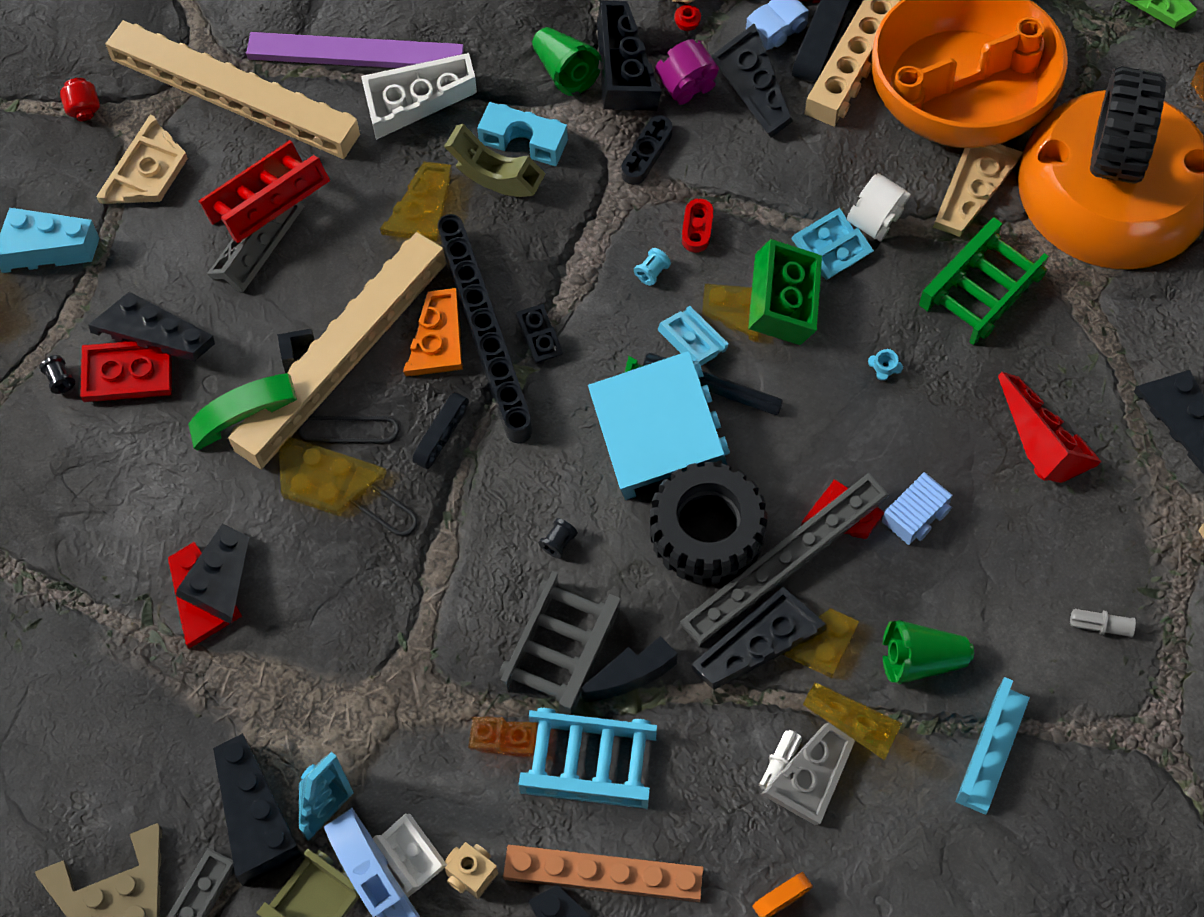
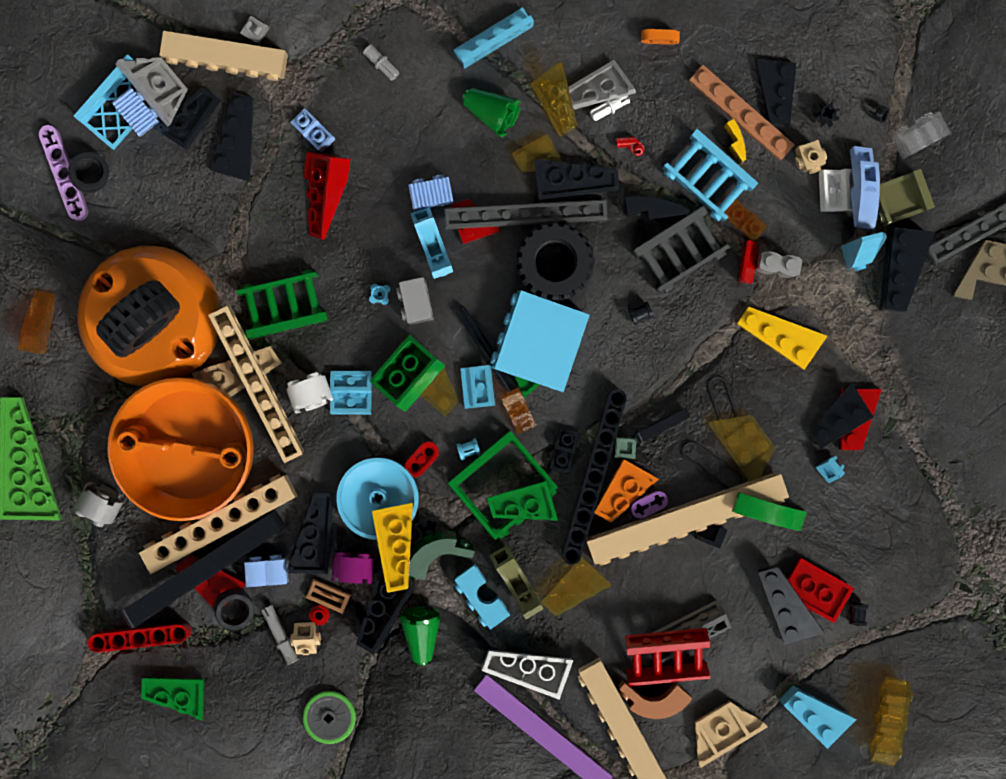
camera: 145 degrees left, 25 degrees up
(195, 509) = (830, 469): none -> medium azure tile
(245, 142) = (657, 707): none -> nougat arch
(349, 629) = (784, 337): none -> yellow wing
(400, 343) = (651, 508): none -> medium lavender beam
(428, 703) = (785, 266): none -> light grey brick
(462, 687) = (748, 262): none -> red slope
(468, 382) = (625, 447): none -> sand green tile
(545, 241) = (525, 503): none -> green wing
(577, 819) = (738, 147): none -> yellow slope
(593, 210) = (502, 530): none -> green window
(611, 147) = (434, 546): none -> dark green arch
(623, 341) = (518, 411): none -> clear orange slope
(663, 115) = (393, 535): none -> yellow wing
(711, 43) = (331, 588): none -> medium nougat tile
(715, 153) = (362, 483): none -> medium azure dish
(717, 736) = (631, 143): none -> red arm
(837, 372) = (415, 300): none -> light grey brick
(886, 462) = (431, 242): none -> medium azure arch
(946, 175) = (256, 383): none -> tan brick
(1118, 493) = (312, 130): none -> light blue slope

